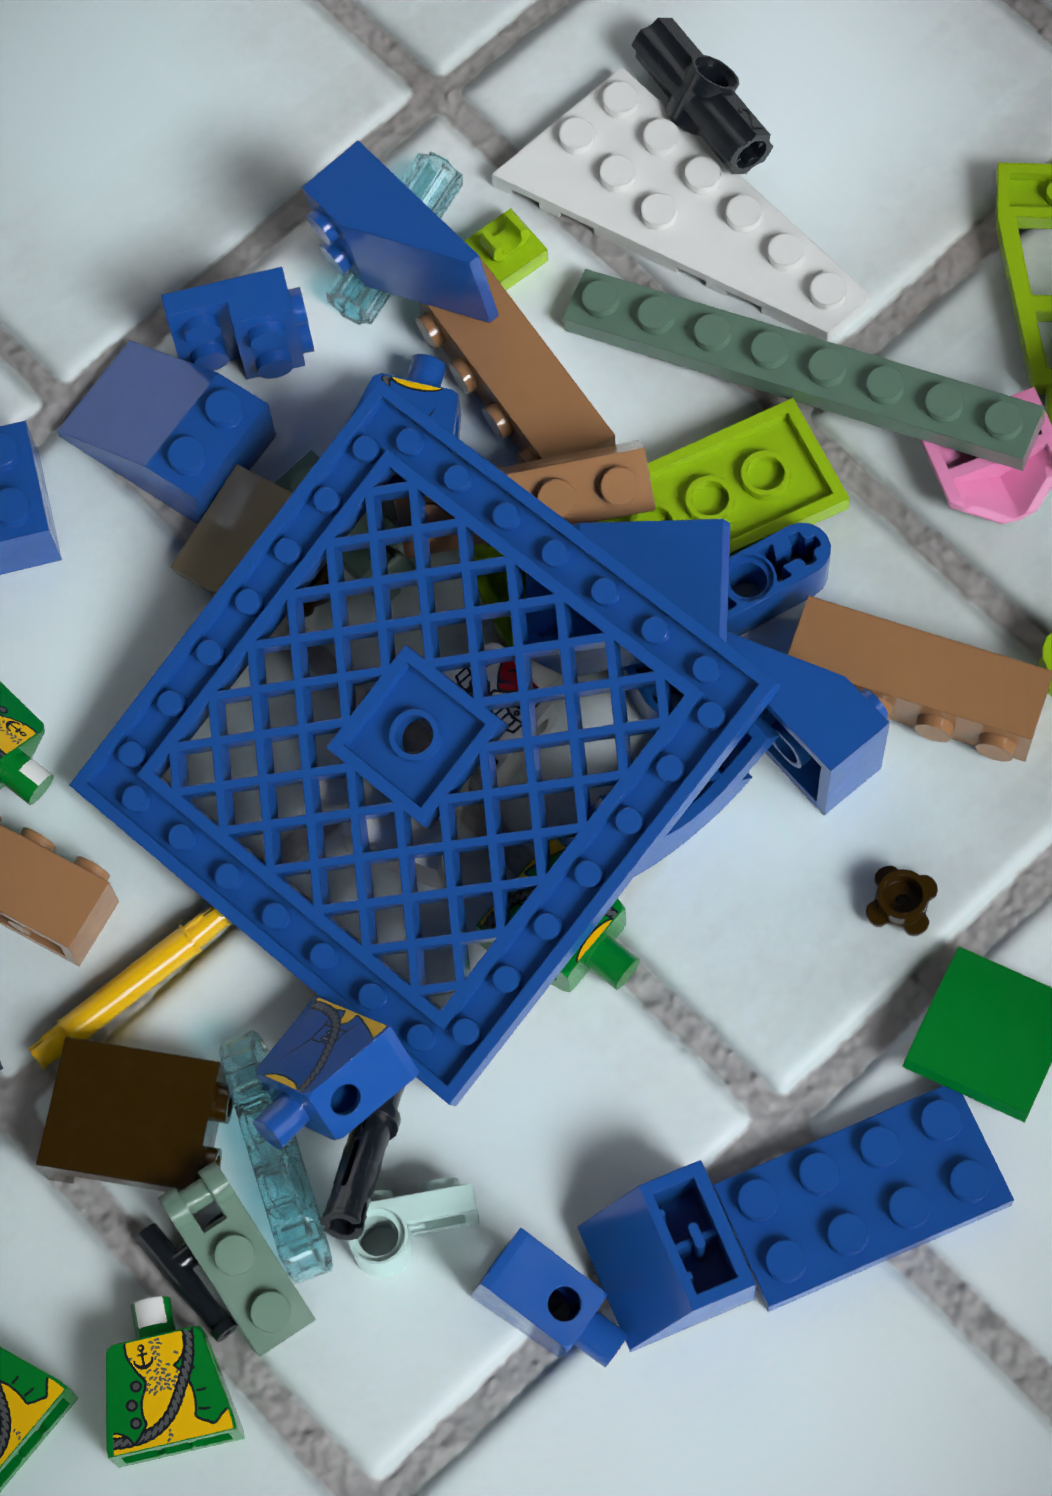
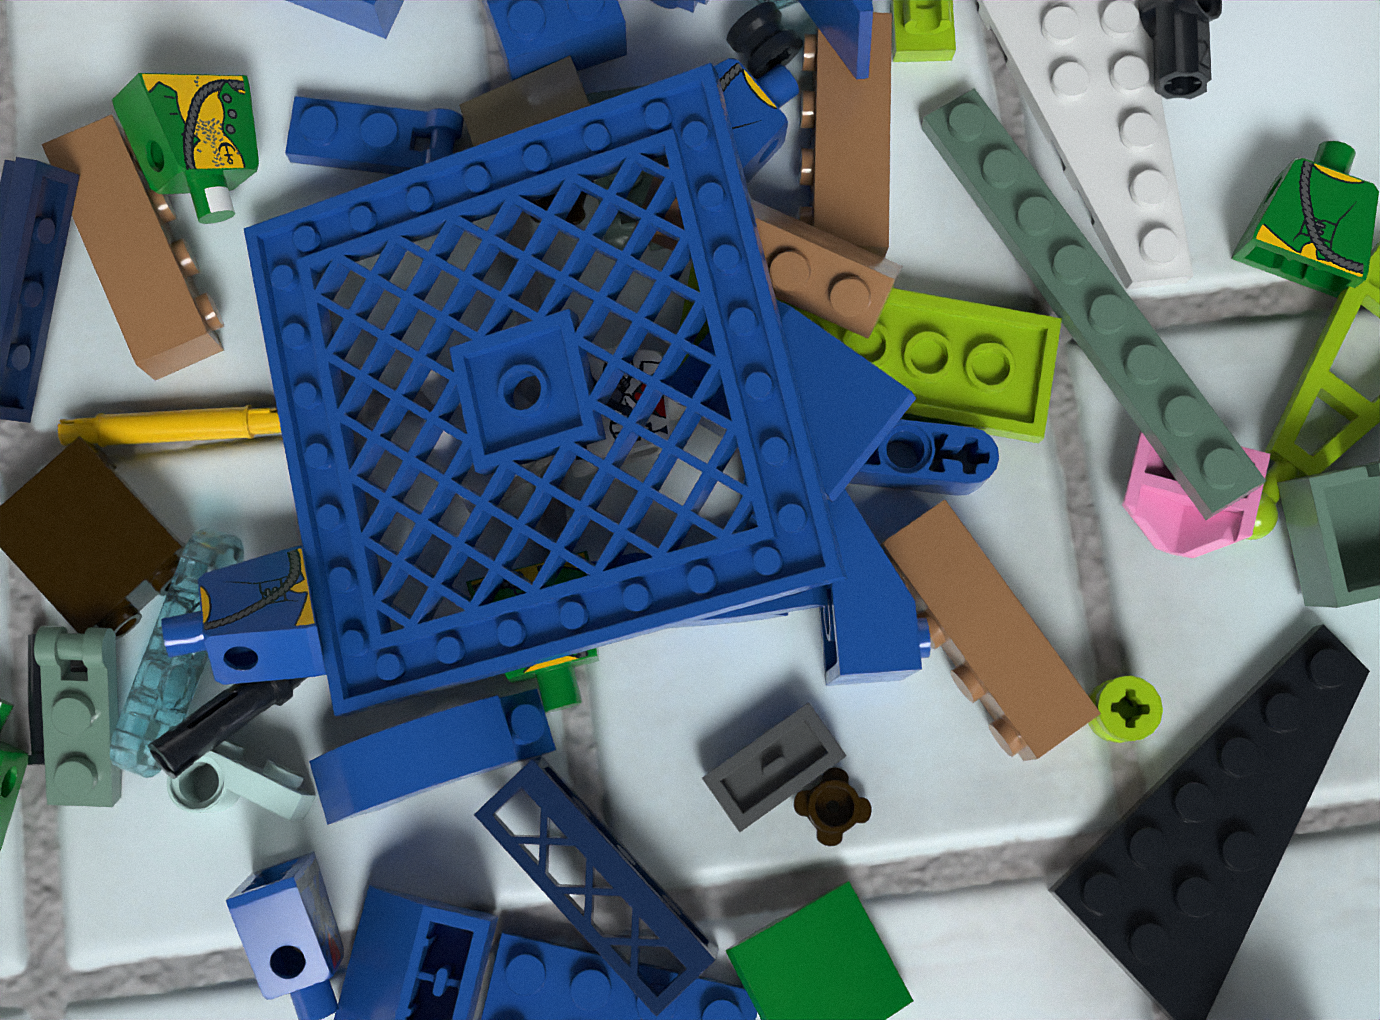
camera: 25 degrees right, 10 degrees up
(114, 643) = (368, 135): none -> blue plate
(385, 344) = (764, 39): none -> black wheel
(544, 1084) = (430, 753): none -> blue arch
(766, 1064) = (617, 866): none -> dark blue fence
(831, 901) = (774, 767): none -> dark grey plate
(934, 191) = (1314, 223): none -> green torso

